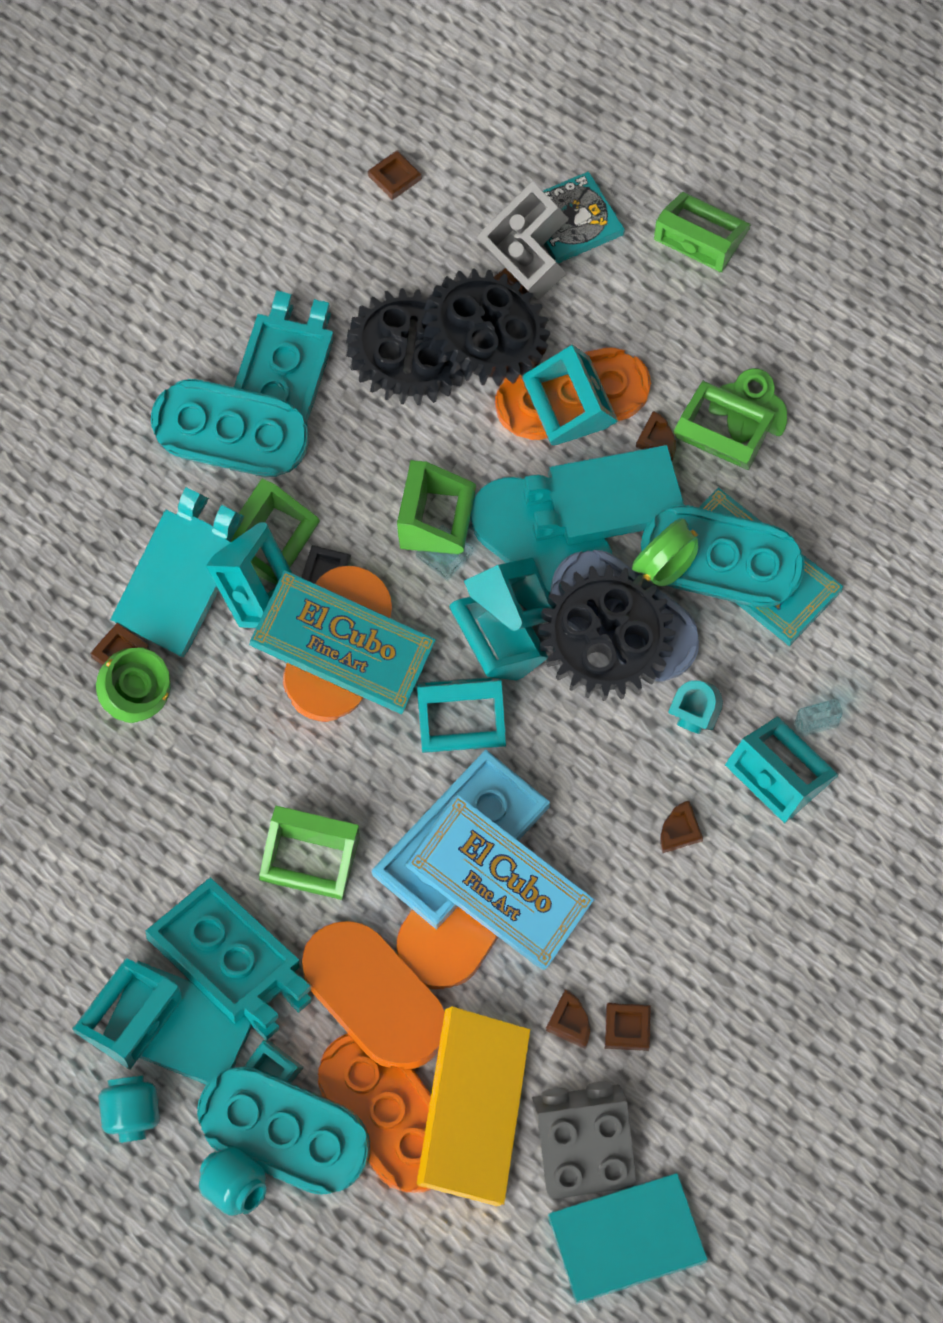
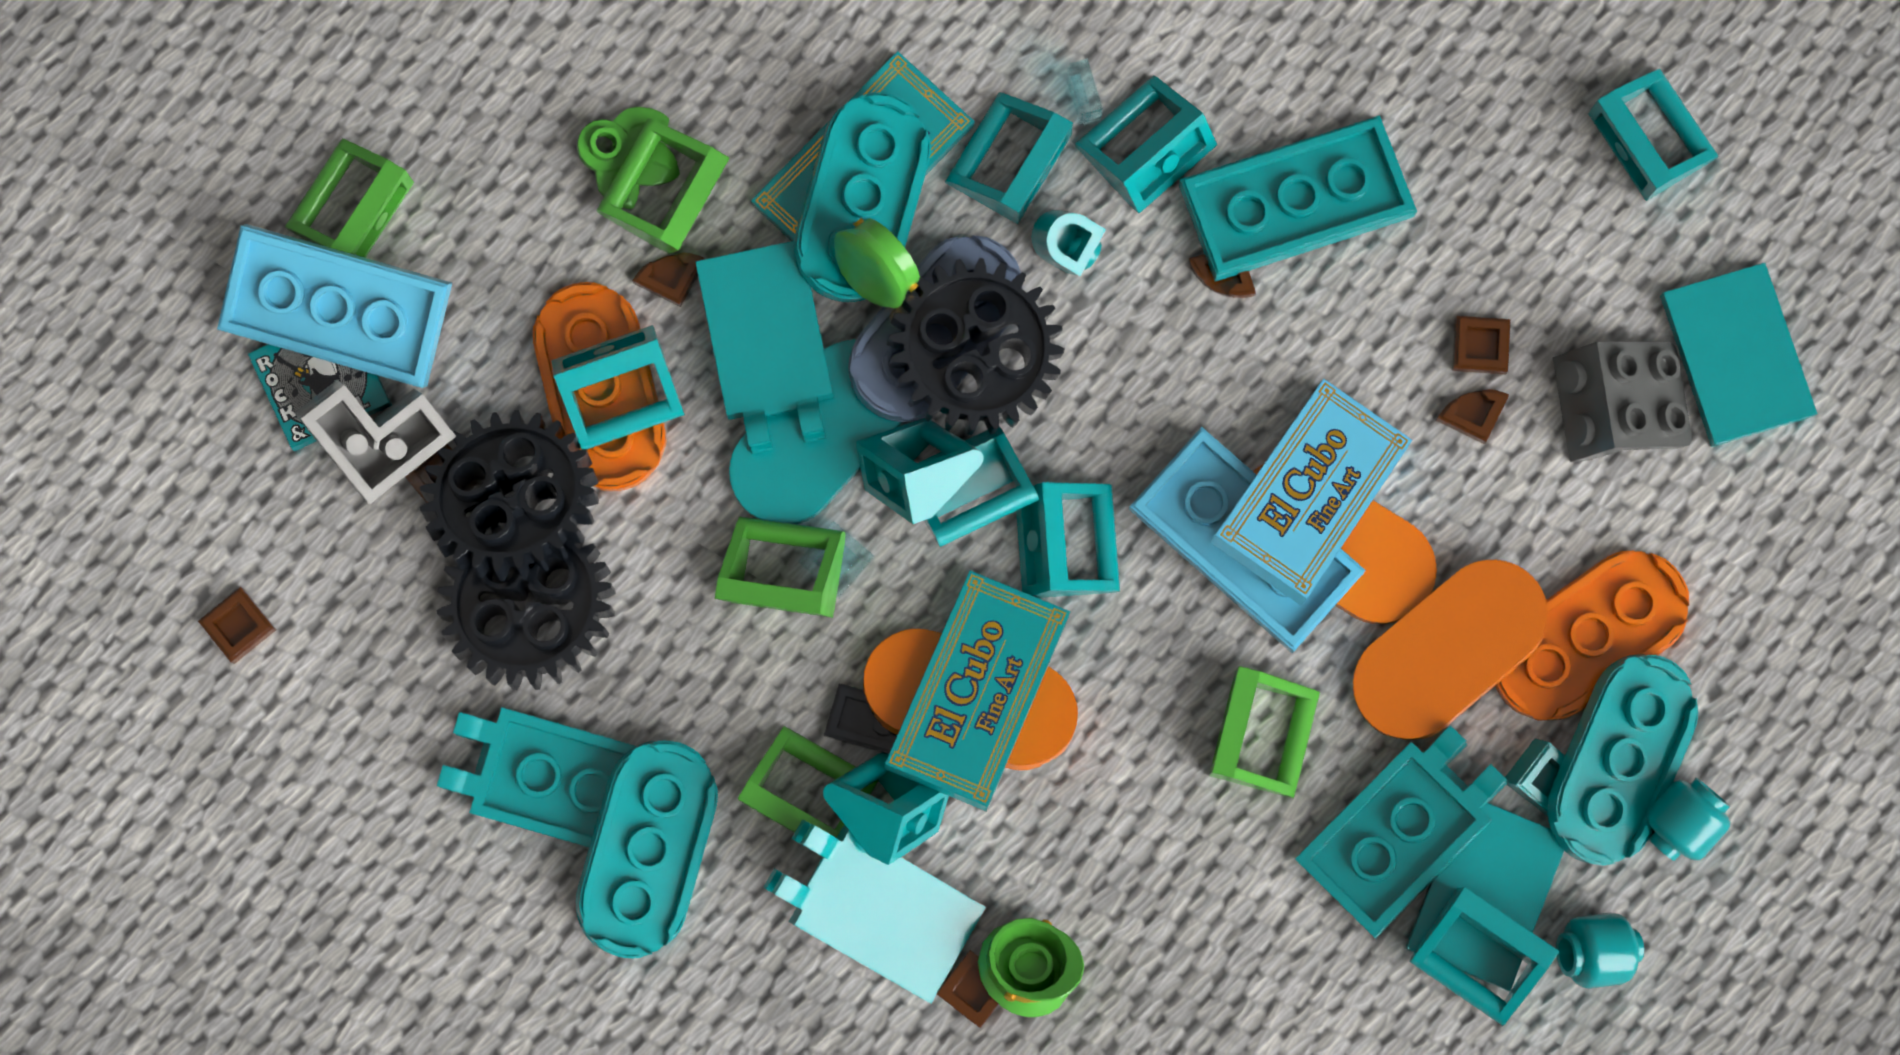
camera: 85 degrees left, 15 degrees up
(474, 1107) = (1594, 527): yellow tile -> none
(622, 216) = (334, 305): none -> medium azure tile
(743, 882) = (1297, 198): none -> teal tile
(756, 682) = (1035, 168): none -> teal tile
(802, 1145) = (1632, 144): none -> teal tile

